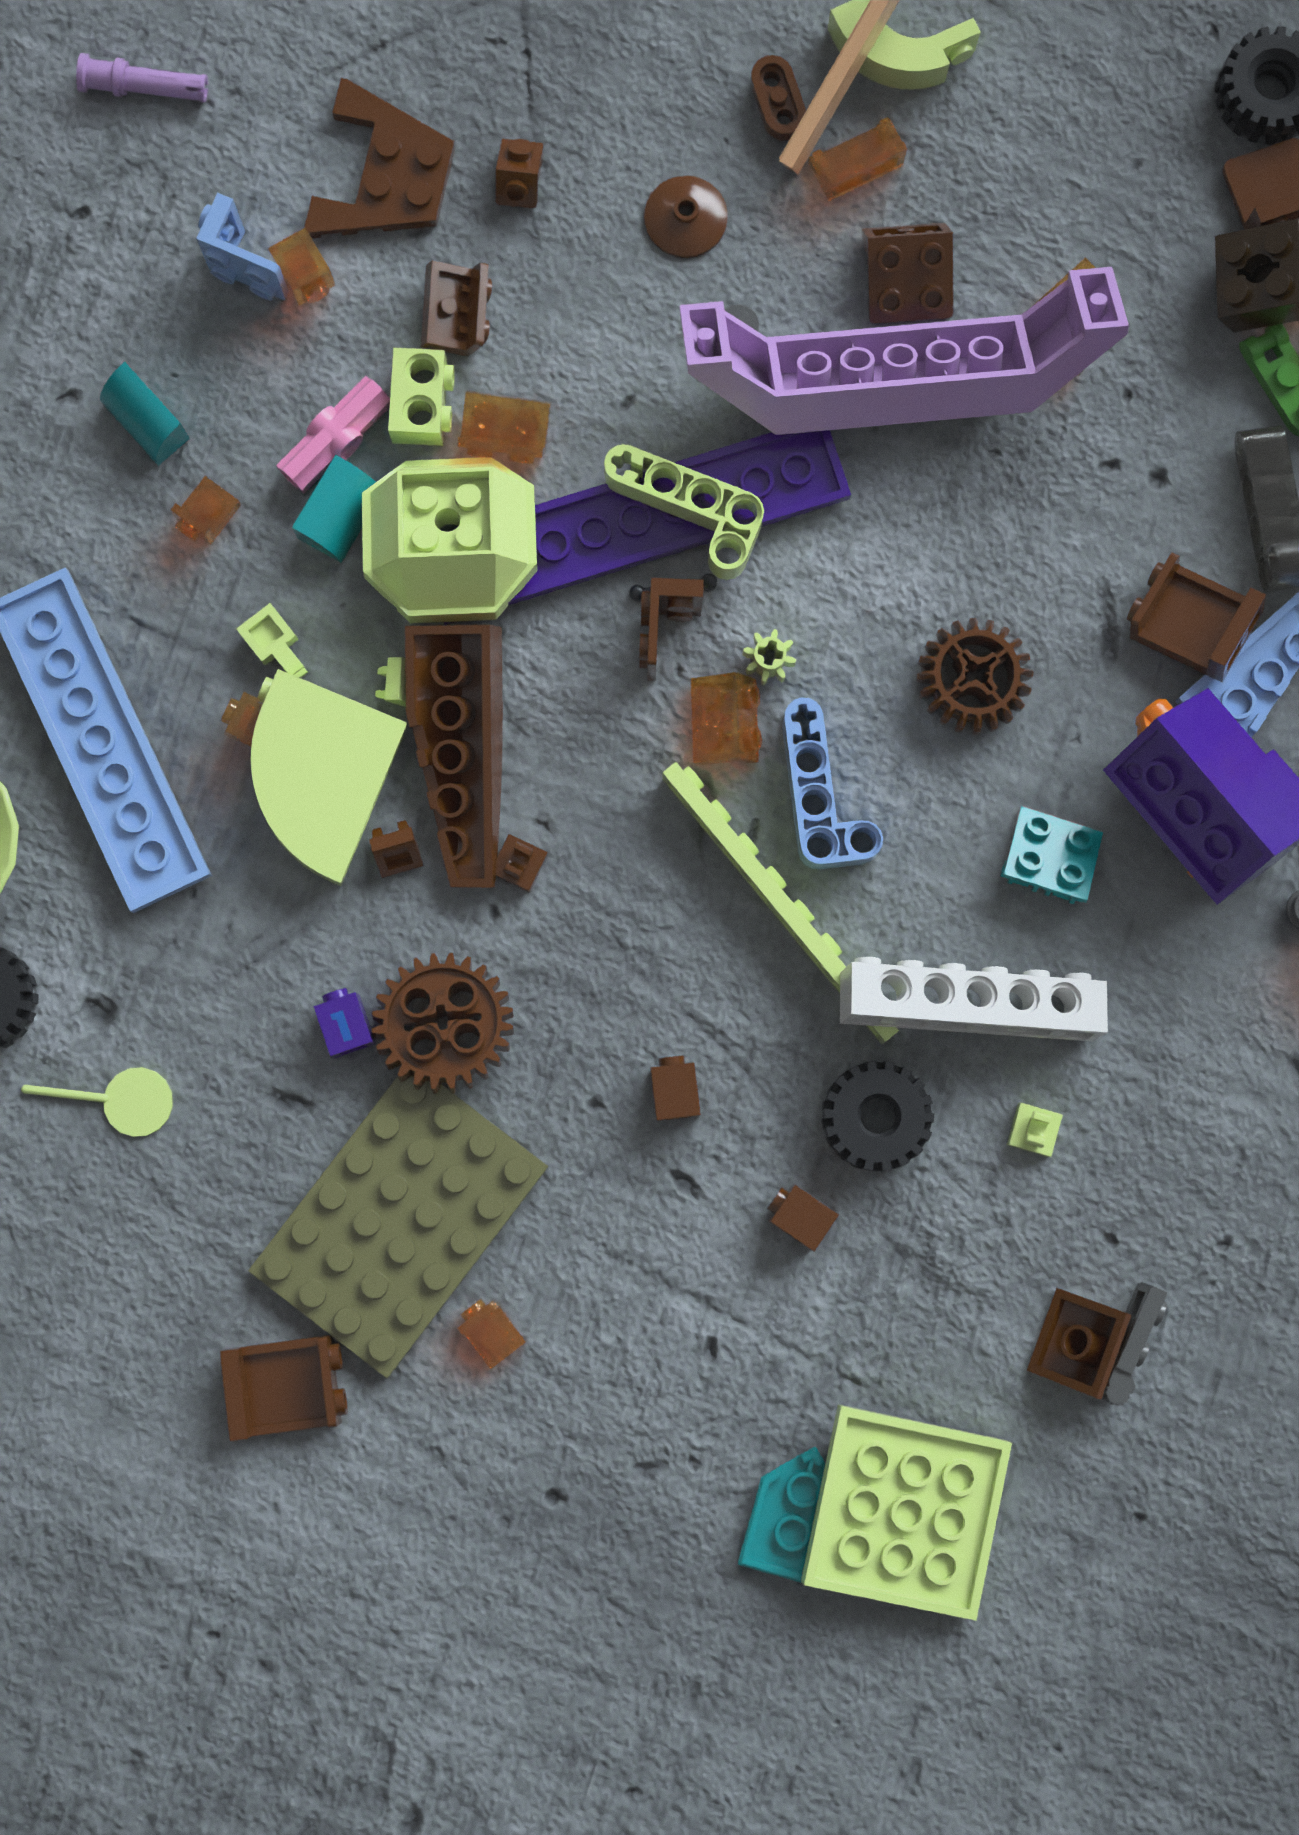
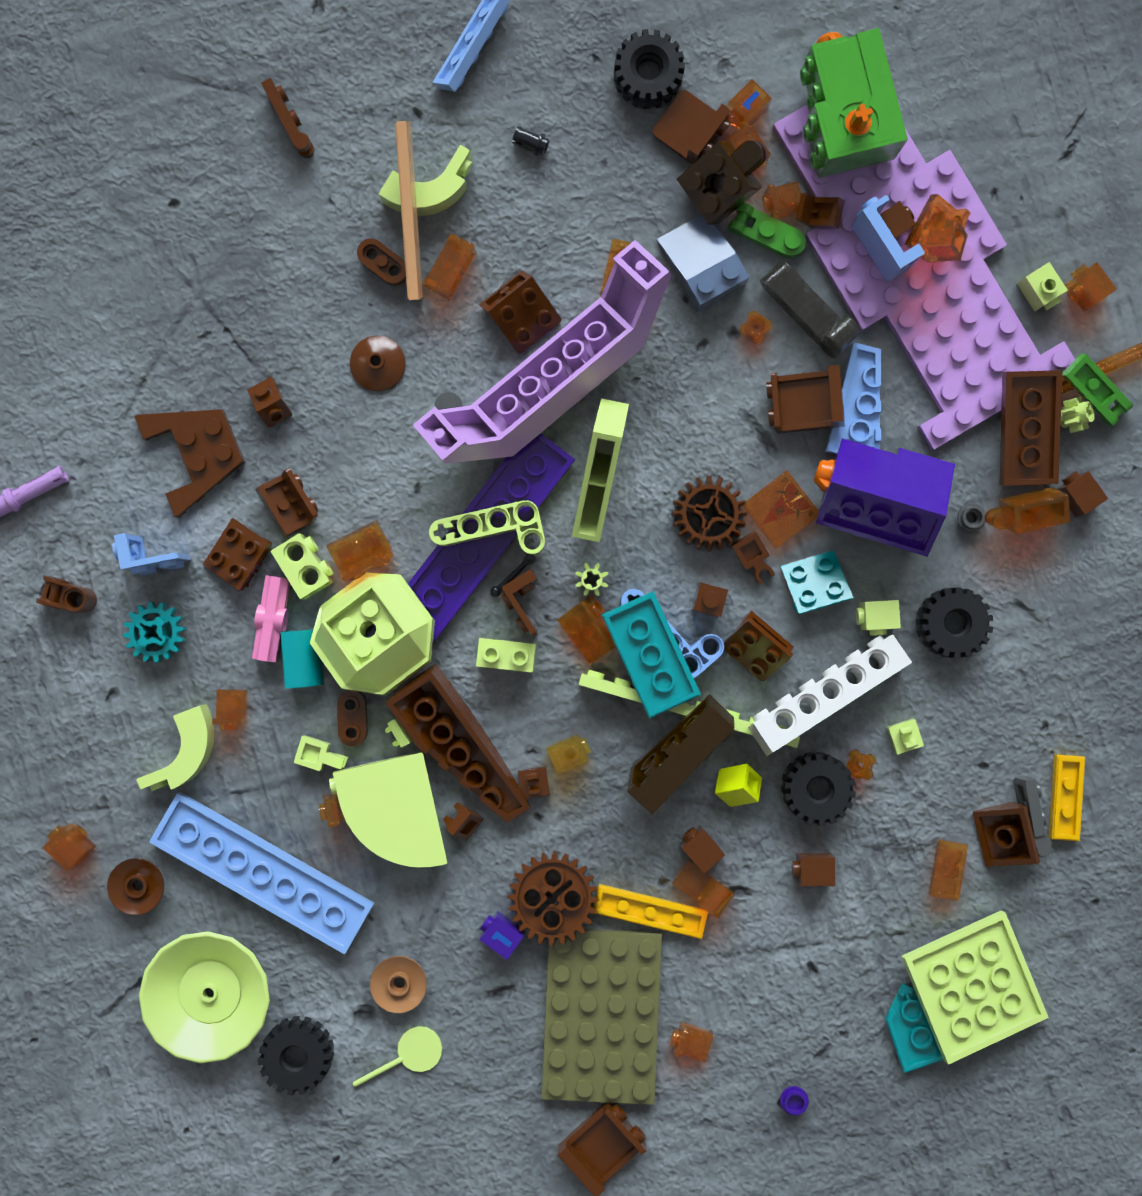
camera: 25 degrees left, 5 degrees up
(98, 233) = (62, 595): none -> reddish brown piece
(120, 533) = (195, 750): none -> yellowish green arch
(142, 414) = (159, 679): teal brick -> none
(149, 990) = (394, 997): none -> medium nougat dish
(163, 355) = (164, 637): none -> teal gear
(302, 267) = (188, 539): clear orange brick -> none
(348, 329) = (237, 554): none -> reddish brown hinge
(349, 626) = (352, 718): none -> reddish brown plate
(554, 1128) = (651, 911): none -> yellow tile
(570, 1501) = (794, 1100): none -> dark purple plate
(590, 853) = (568, 752): none -> clear yellow brick
(596, 676) = (506, 655): none -> yellowish green brick
(642, 1145) = (704, 889): none -> clear orange plate
(733, 942) = (679, 753): none -> dark brown wedge
(777, 1043) = (738, 785): none -> neon yellow panel
(780, 795) = (651, 654): none -> teal tile
(874, 521) = (600, 470): none -> yellowish green brick
(901, 782) = (709, 599): none -> reddish brown brick
(921, 883) = (758, 647): none -> reddish brown bracket
(942, 1124) = (857, 771): none -> clear orange plate
(975, 1338) = (948, 869): none -> clear orange plate
(996, 761) = (751, 554): none -> reddish brown plate
(1064, 75) = (531, 141): none -> black pin
(1069, 734) = (781, 509): none -> clear orange tile
(1104, 950) = (878, 616): none -> yellowish green brick
(1163, 1025) = (933, 622): none -> black tyre
(1179, 365) = (703, 262): none -> sand blue slope
(1192, 1353) = (1066, 797): none -> yellow tile
(1200, 478) = (763, 324): none -> clear orange plate

